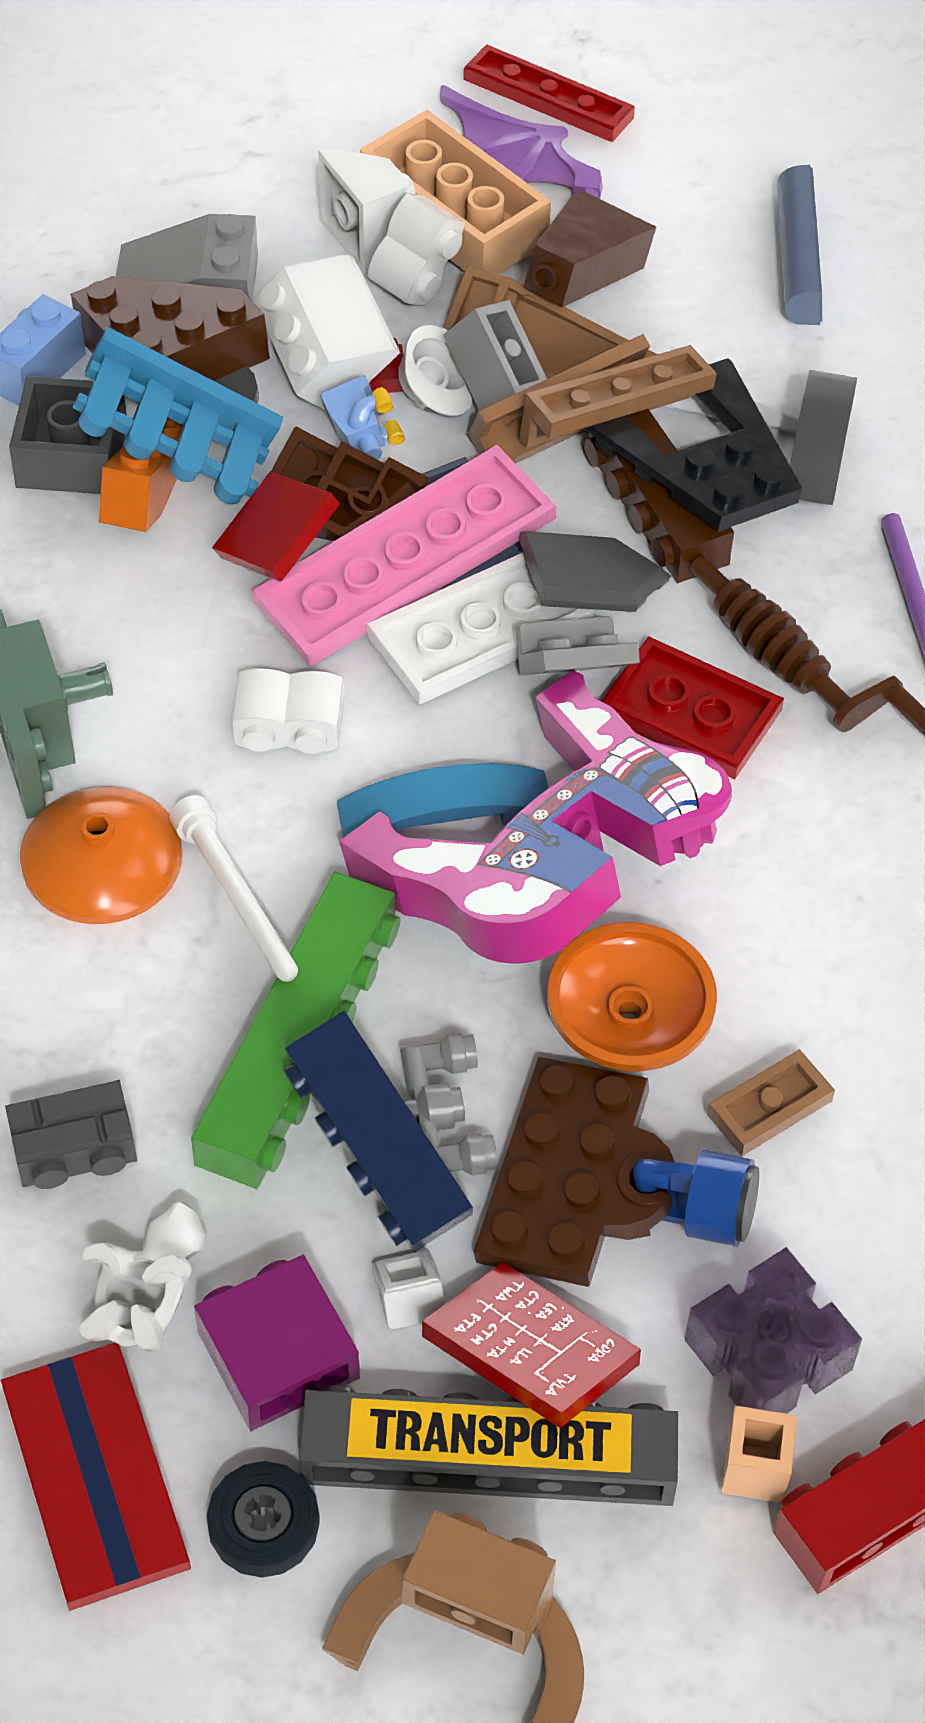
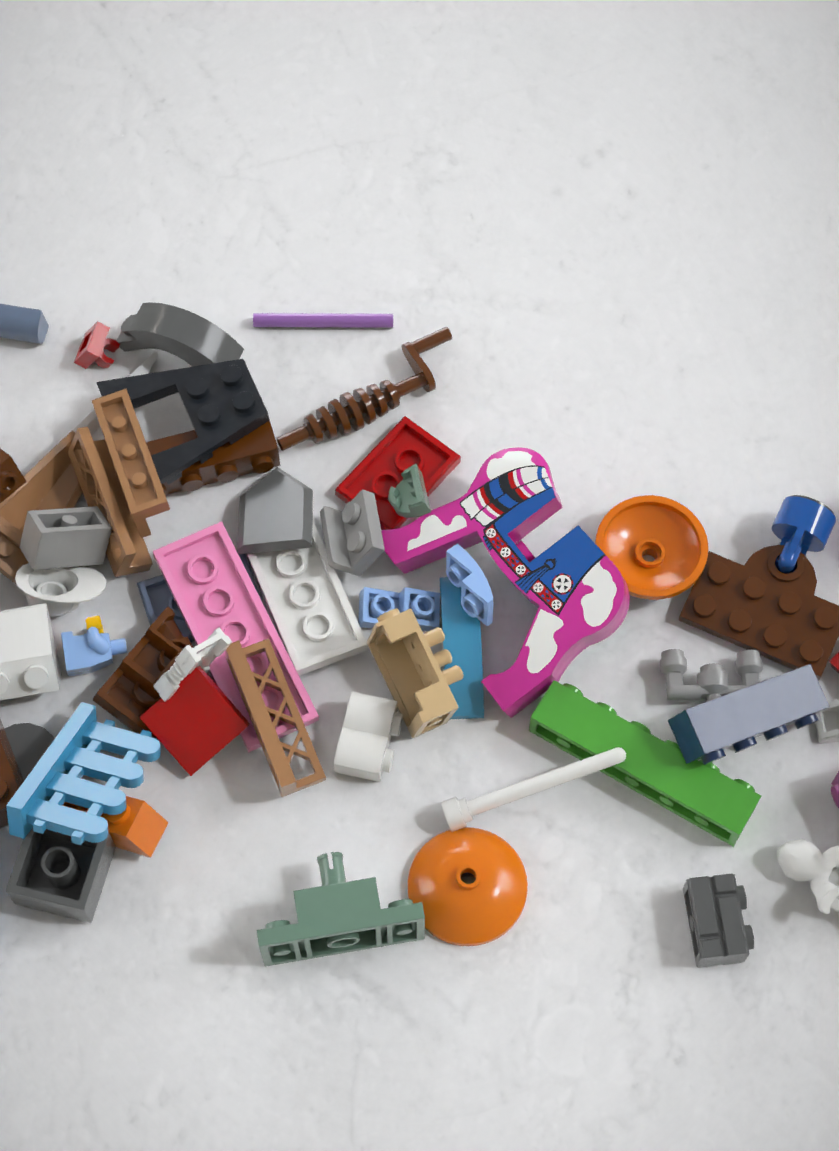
camera: 80 degrees left, 10 degrees up
(275, 587) = (261, 721): none -> medium nougat fence
(317, 466) = (189, 659): none -> white piece
(349, 759) = (414, 671): none -> tan piece
(483, 722) = (377, 602): none -> light blue slope
(517, 782) = (475, 589): none -> light blue slope
(639, 697) = (410, 495): none -> sand green tile
(770, 1102) = (726, 486): medium nougat plate -> none
(793, 358) = (93, 347): none -> tile

